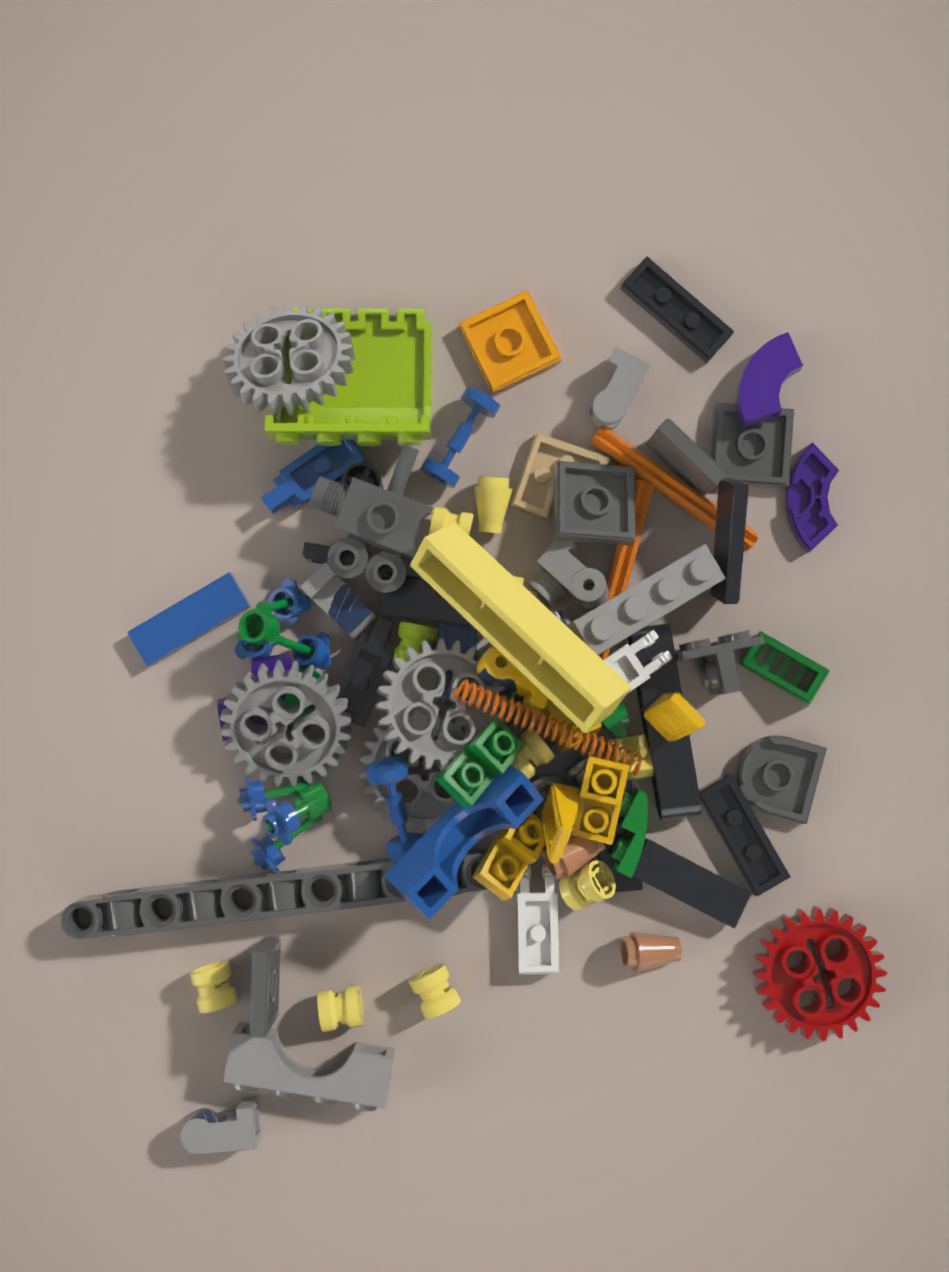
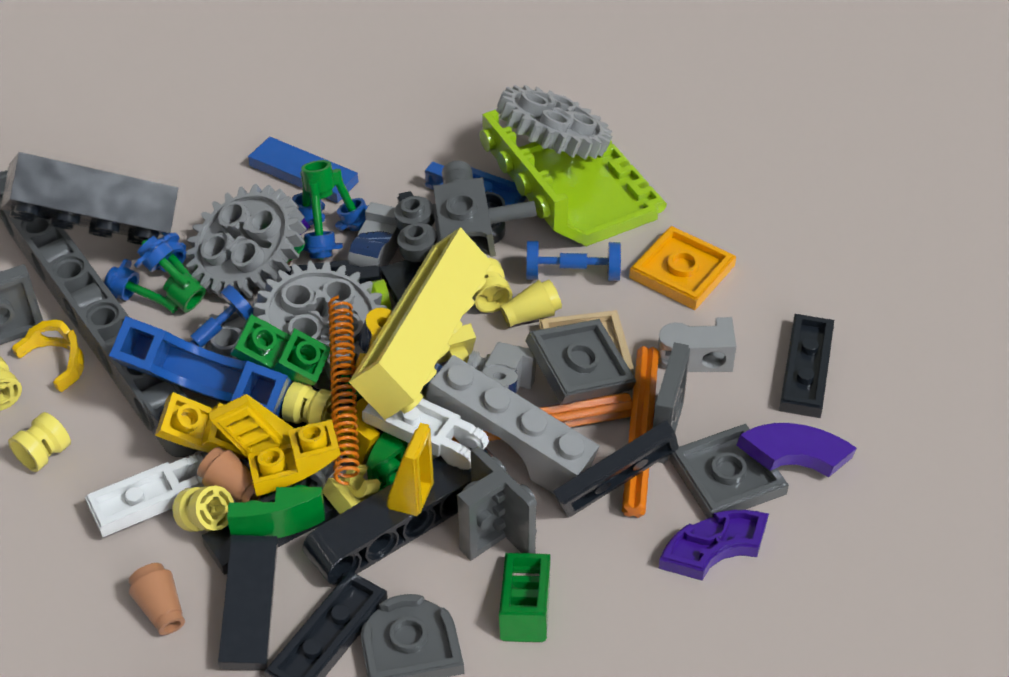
camera: 65 degrees right, 40 degrees down
(183, 861) = (88, 198): none -> brick
(325, 922) = (36, 339): none -> yellow helmet

